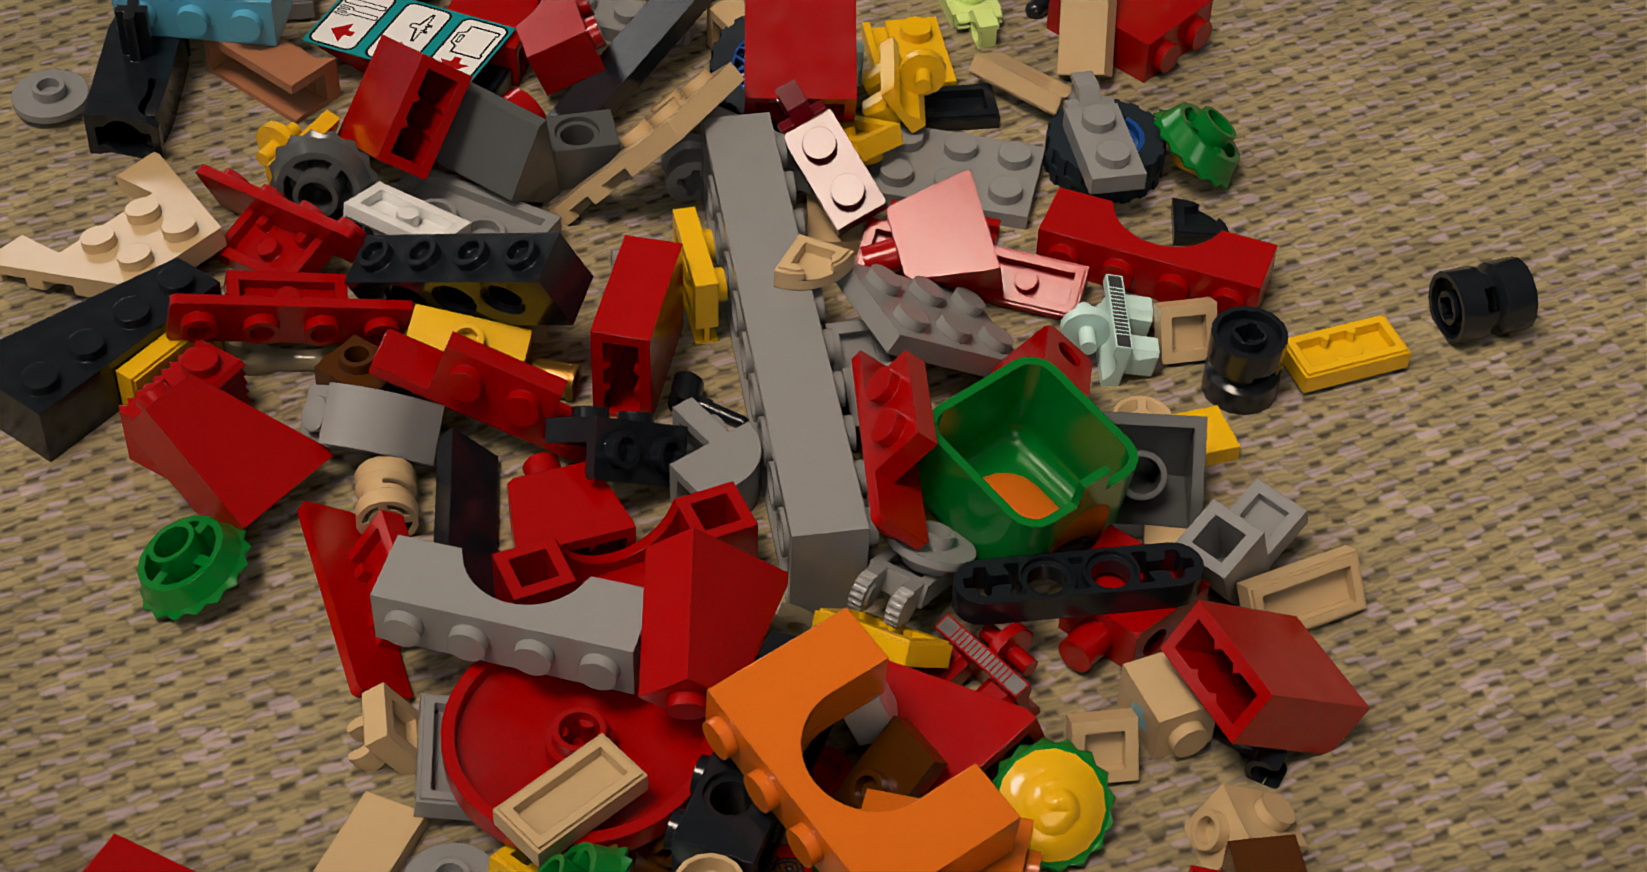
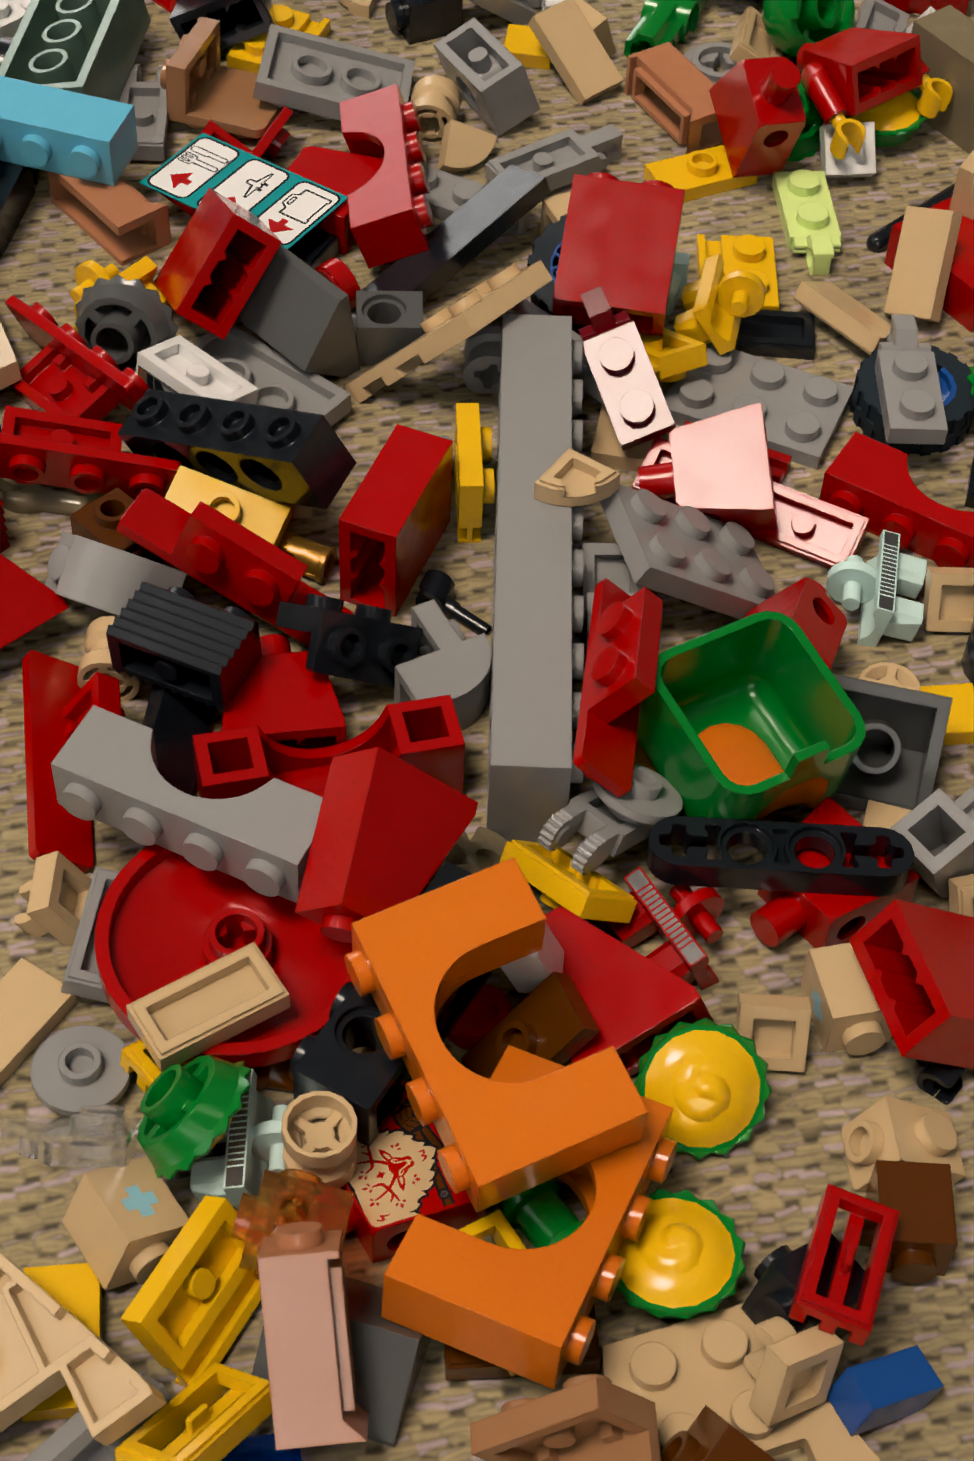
camera: 10 degrees right, 5 degrees up
(463, 471) = (184, 644): none -> black brick

